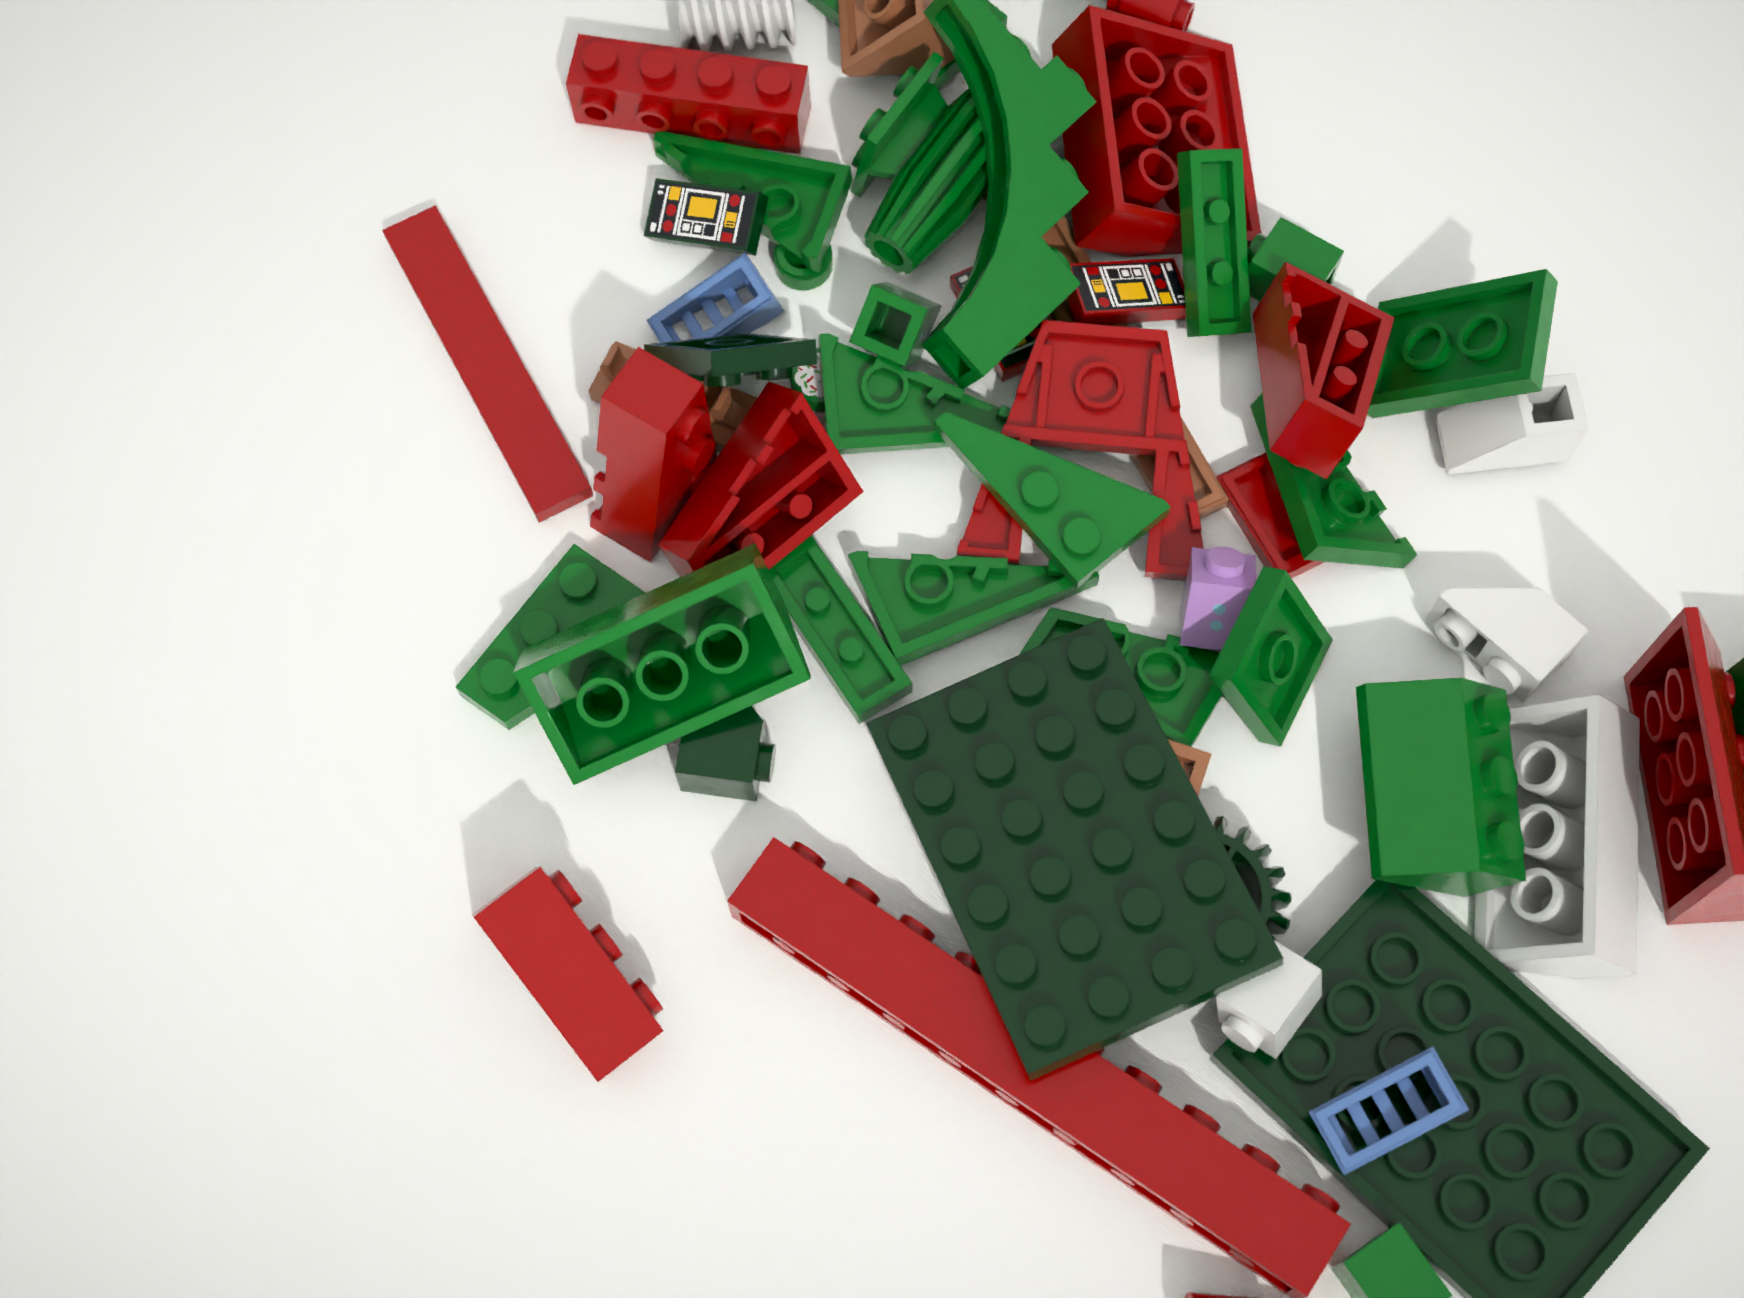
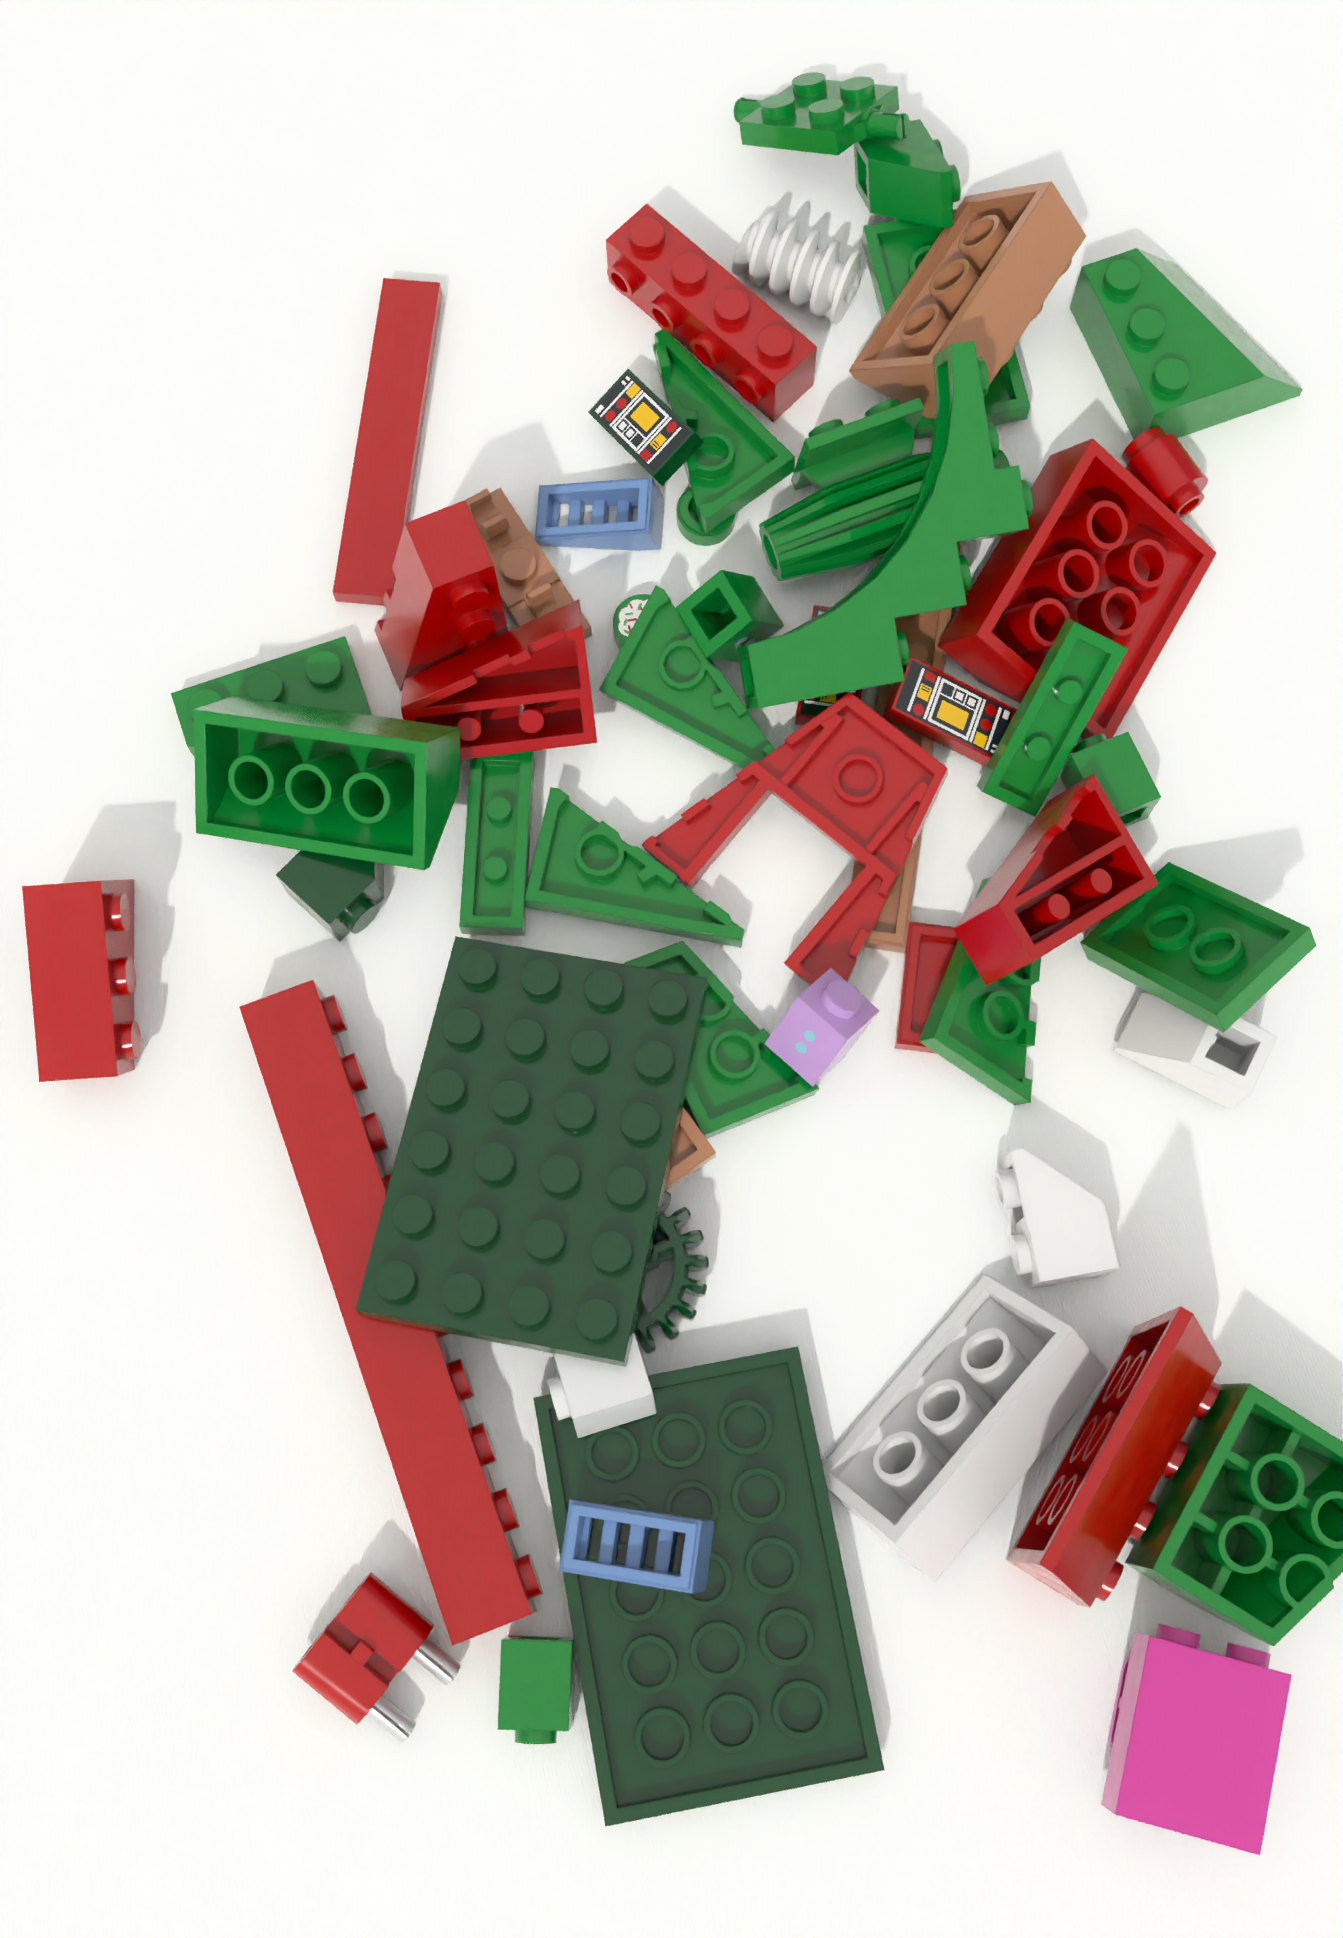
camera: 35 degrees right, 5 degrees up
(724, 359) = (555, 553): dark green plate -> none
(1063, 507) = (751, 866): green wing -> none
(1271, 656) = (827, 1104): green tile -> none
(1440, 785) = (885, 1308): green slope -> none

